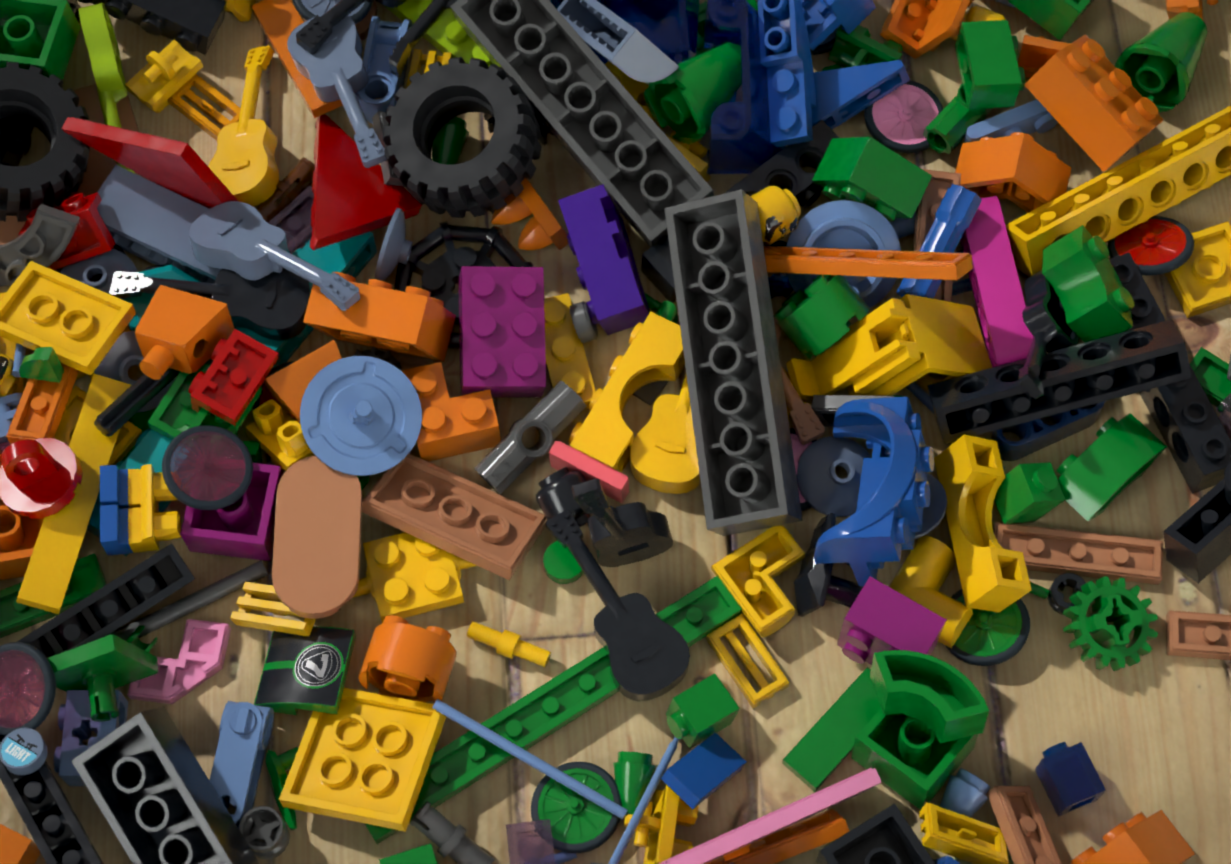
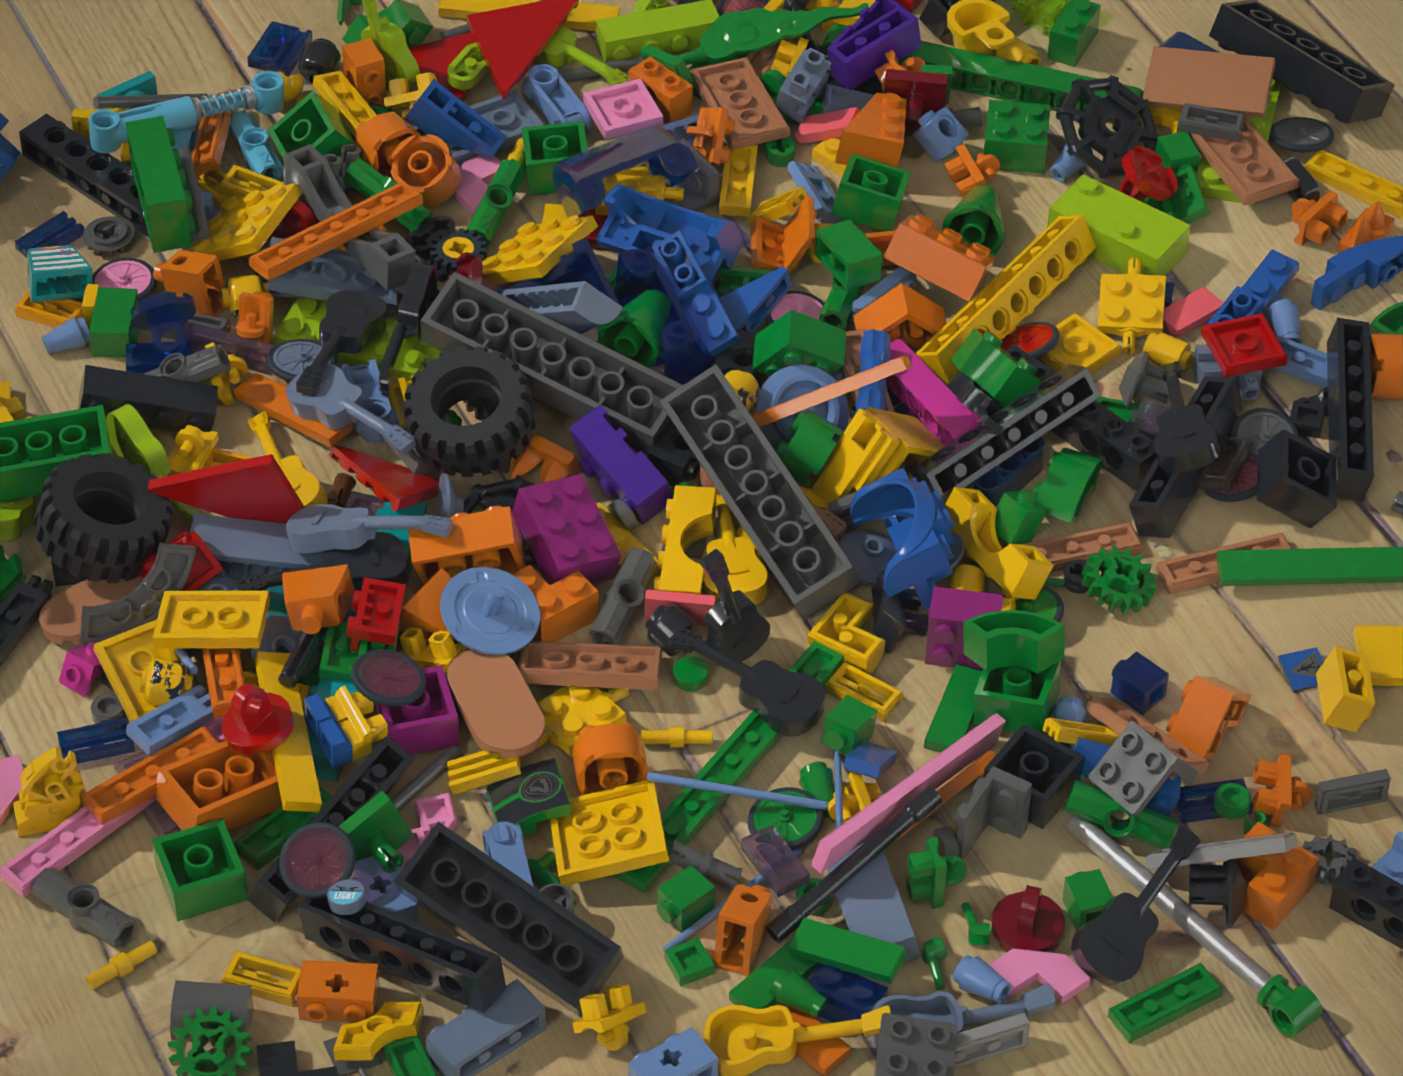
camera: 25 degrees left, 20 degrees down
(42, 365) = (216, 651): green tile -> none

